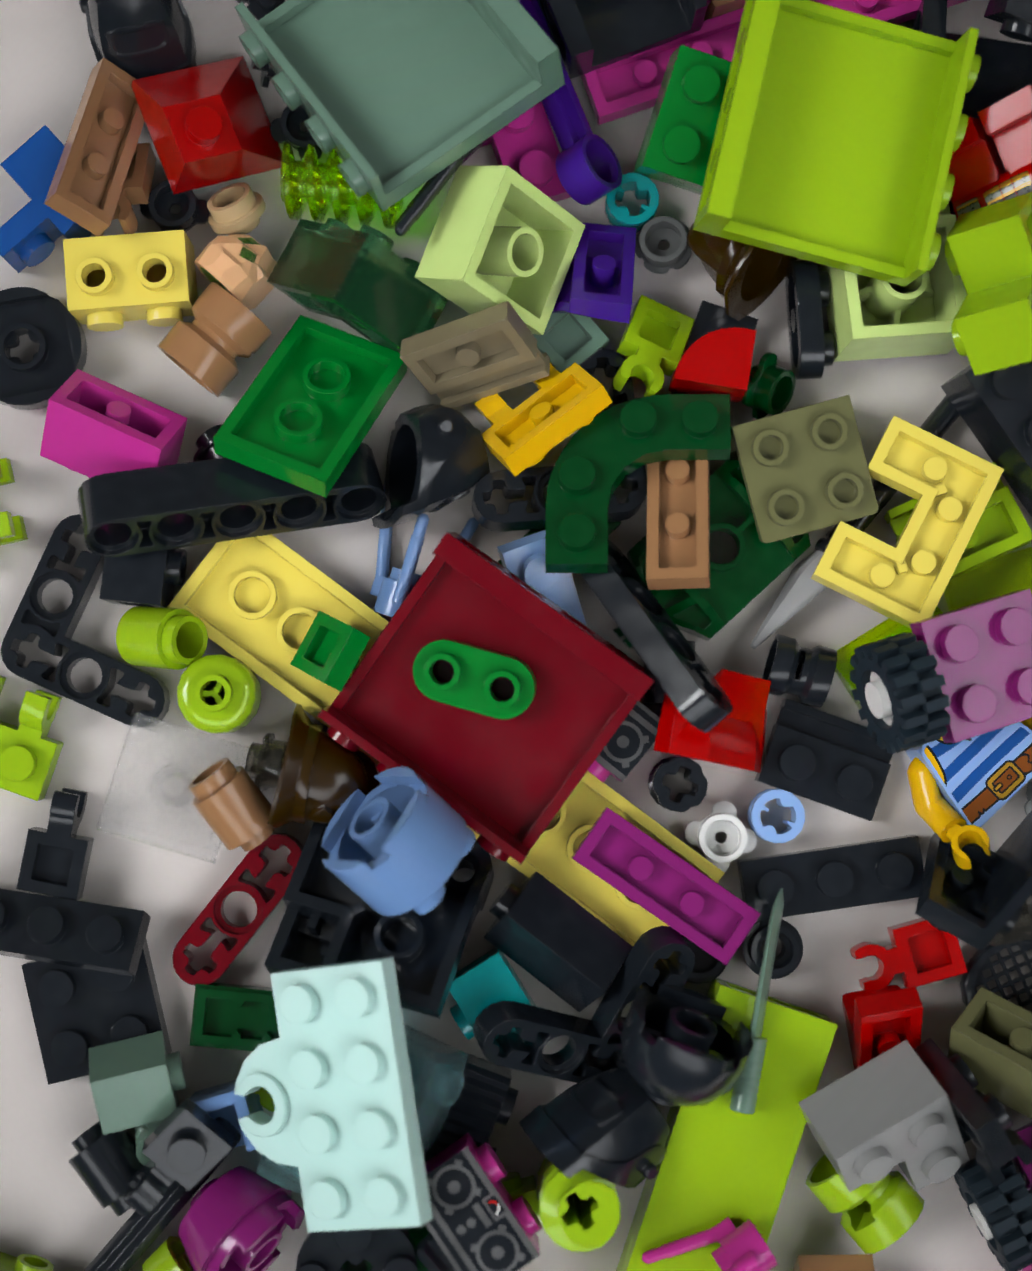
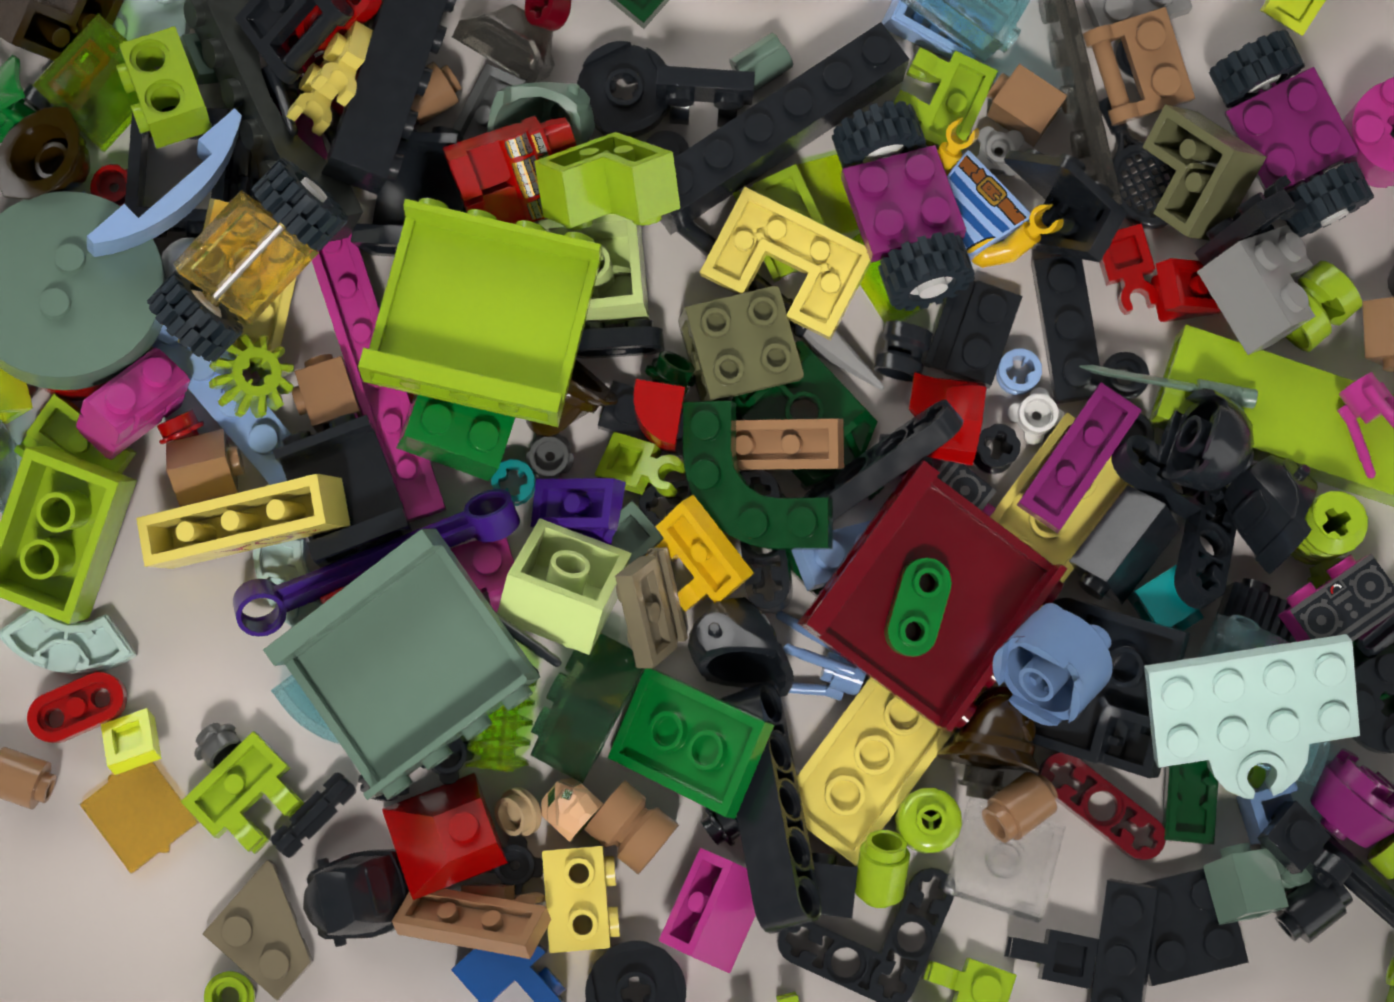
camera: 85 degrees left, 5 degrees down
(330, 651) = (894, 726): green plate -> none

